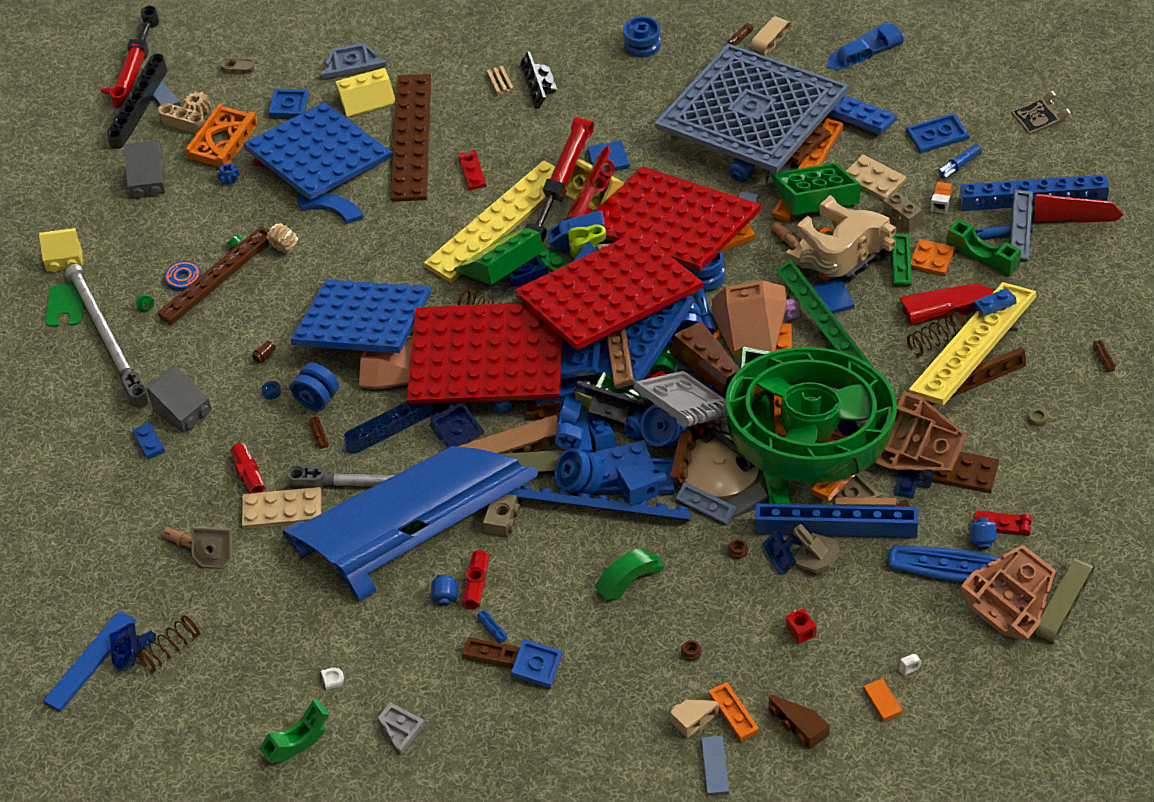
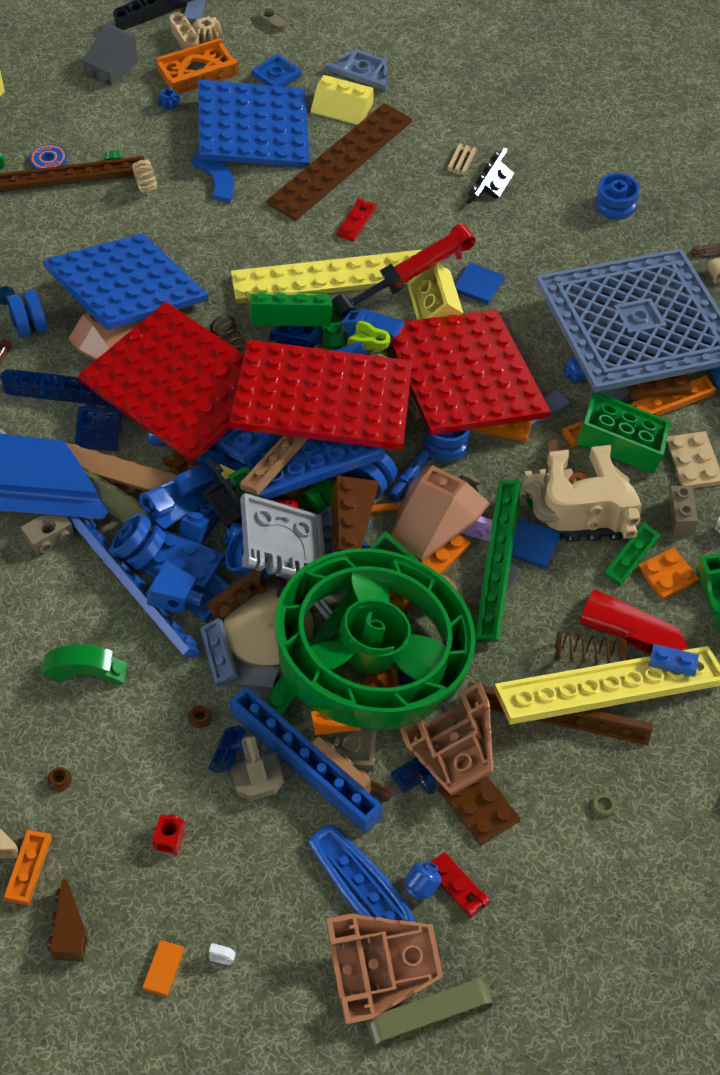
camera: 35 degrees right, 5 degrees up
(260, 354) = (32, 259): reddish brown pin -> none
(602, 178) = (394, 309): red panel -> none

